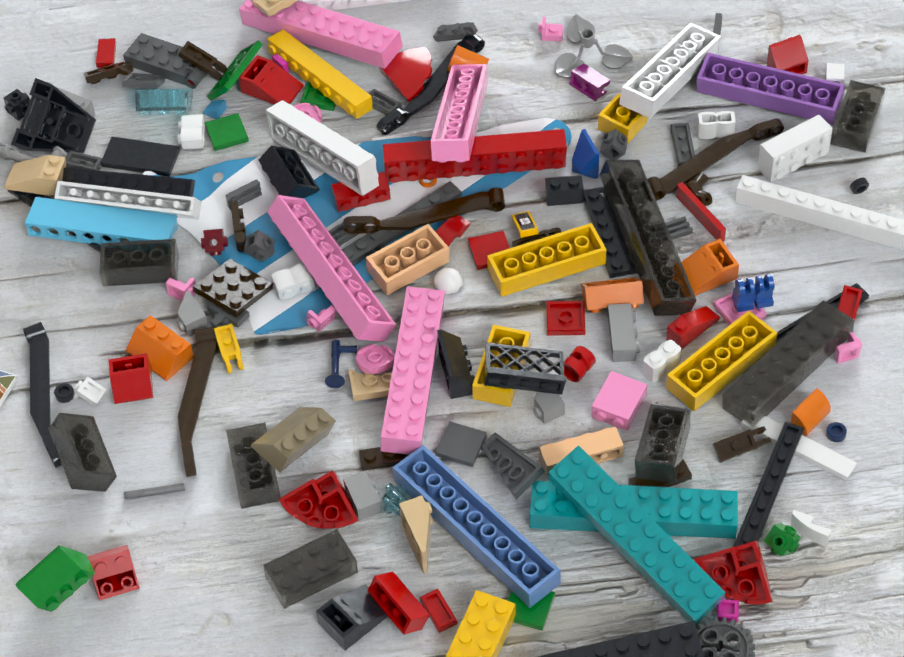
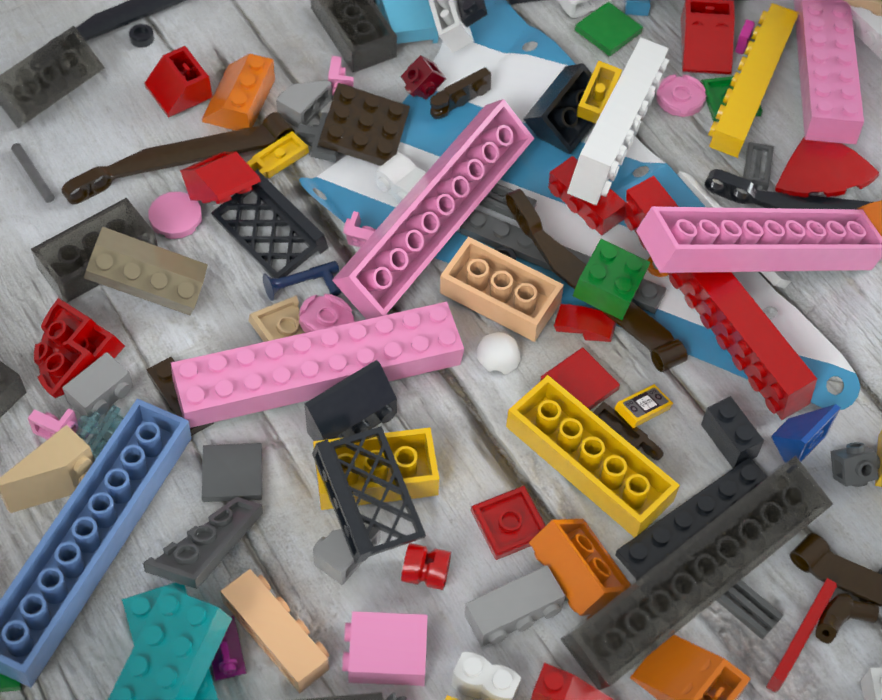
camera: 60 degrees right, 5 degrees up
(89, 391) = (147, 53): white bracket -> none
(237, 375) = (219, 178): none -> red slope
(241, 414) = (175, 215): none -> bright pink tile
(244, 194) = (512, 78): dark grey tile -> none
(259, 246) = (429, 125): dark grey brick -> none
(276, 354) = (289, 216): none -> black fence
(298, 147) = (598, 91): none -> yellow brick
(379, 529) = (47, 424): none -> bright pink bracket
(438, 199) = (611, 279): none -> green brick

